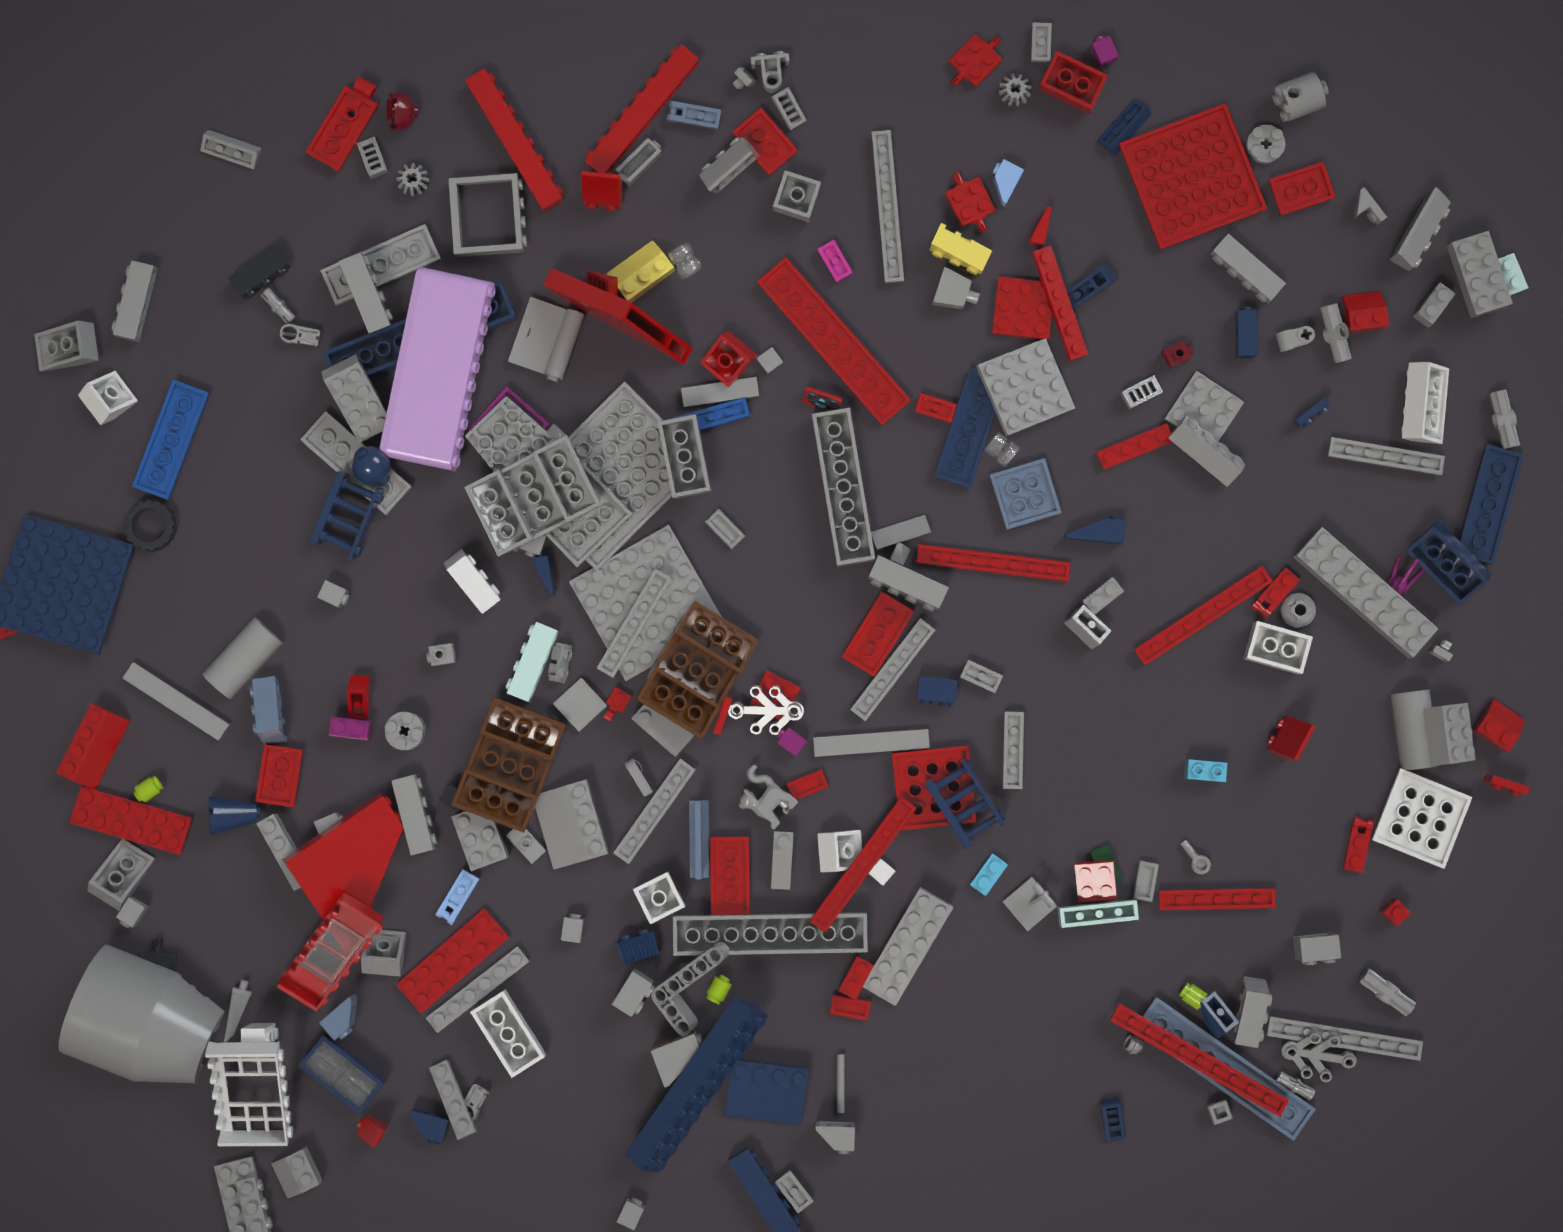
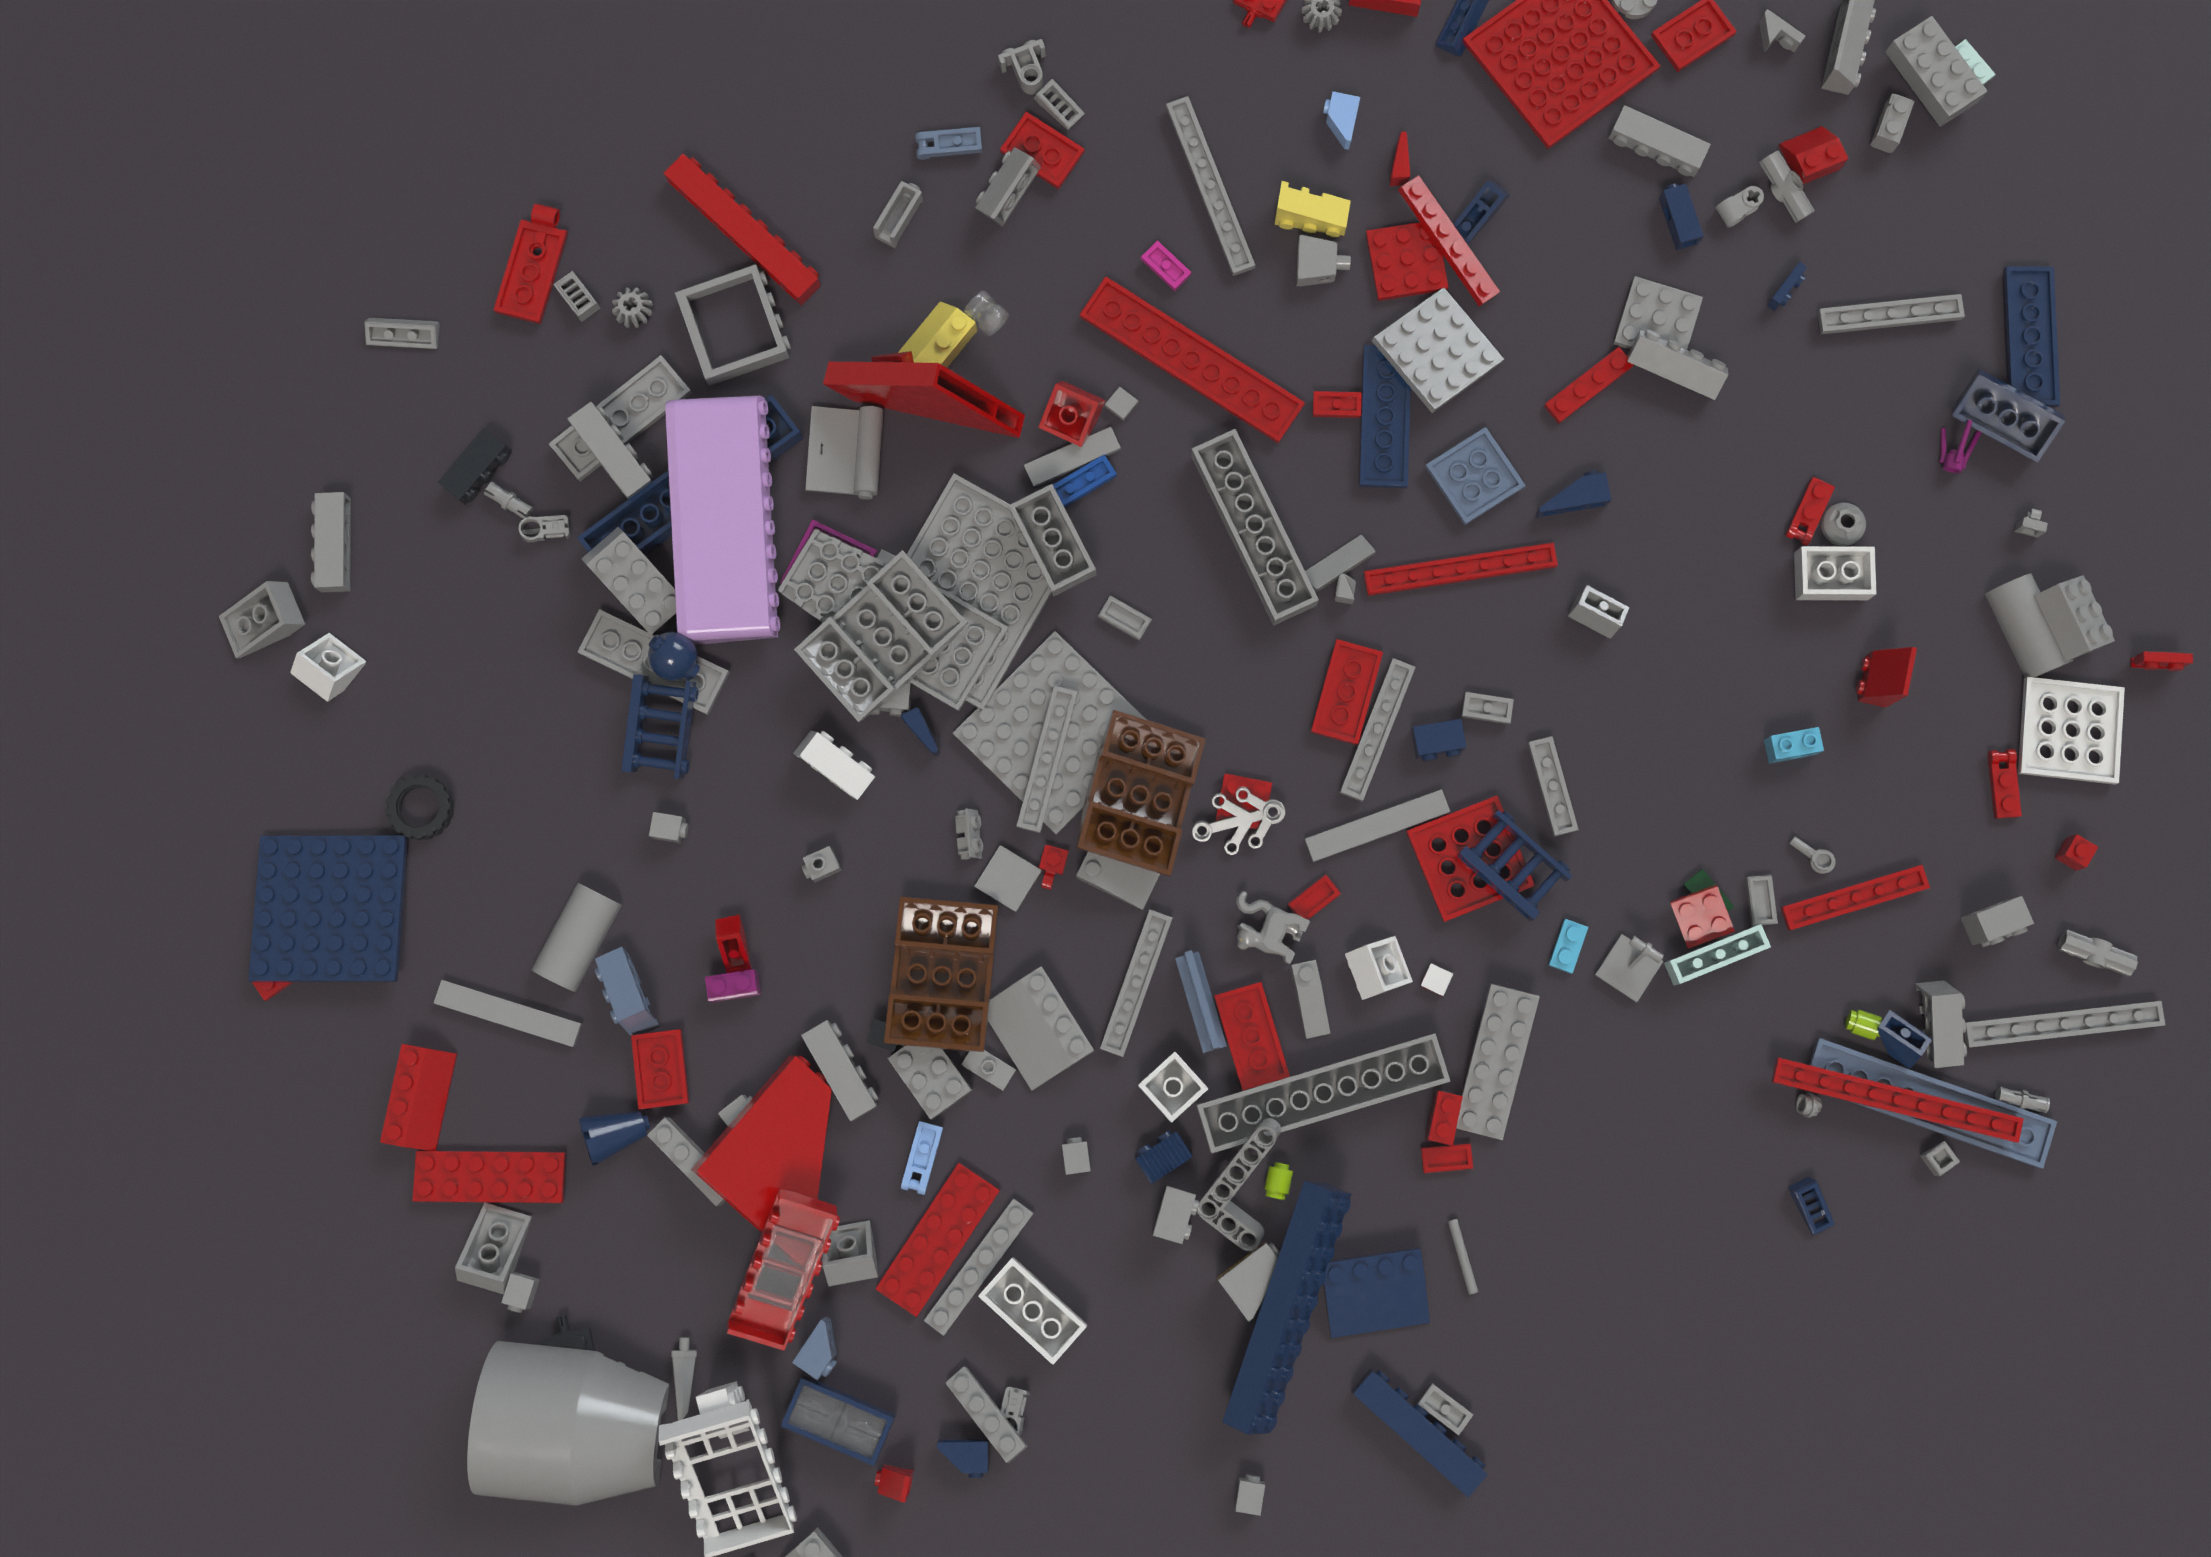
camera: 15 degrees left, 5 degrees down
(148, 789) = (500, 1131): lime brick -> none
(170, 439) = (418, 696): blue plate -> none
(395, 726) = (787, 969): light grey brick -> none
(400, 111) = (596, 231): dark red cylinder -> none
(532, 661) = (935, 842): light aqua brick -> none
(602, 190) = (863, 254): red slope -> none
(638, 777) = (1104, 946): light grey piece -> none
(642, 111) = (886, 154): red brick -> none
(722, 715) = (1186, 848): red tile -> none
(744, 78) = (996, 84): light grey tile -> none
(791, 741) = (1279, 850): magenta brick -> none
(796, 196) = (1099, 201): light grey brick -> none
(821, 400) = (1196, 431): slope -> none
(838, 1135) = (1481, 1320): light grey slope -> none
(863, 864) = (1412, 975): red tile -> none
(908, 583) = (1366, 619): light grey brick -> none
(970, 202) = (1306, 154): red plate -> none
(994, 449) = (1431, 430): clear wheel -> none
(1102, 596) = (1605, 568): light grey brick -> none
(1127, 398) = (1564, 332): light grey slope -> none
(1172, 359) = (1601, 269): dark red brick -> none
(1203, 615) = (1732, 561): red plate -> none
(1315, 1054) = (2036, 1053): light grey plant -> none
(1365, 592) = (1919, 480): light grey brick -> none
(1425, 402) = (1917, 238): white slope -> none
(1499, 726) = (2128, 595): red slope -> none
(1504, 419) = (2017, 232): light grey piece -> none

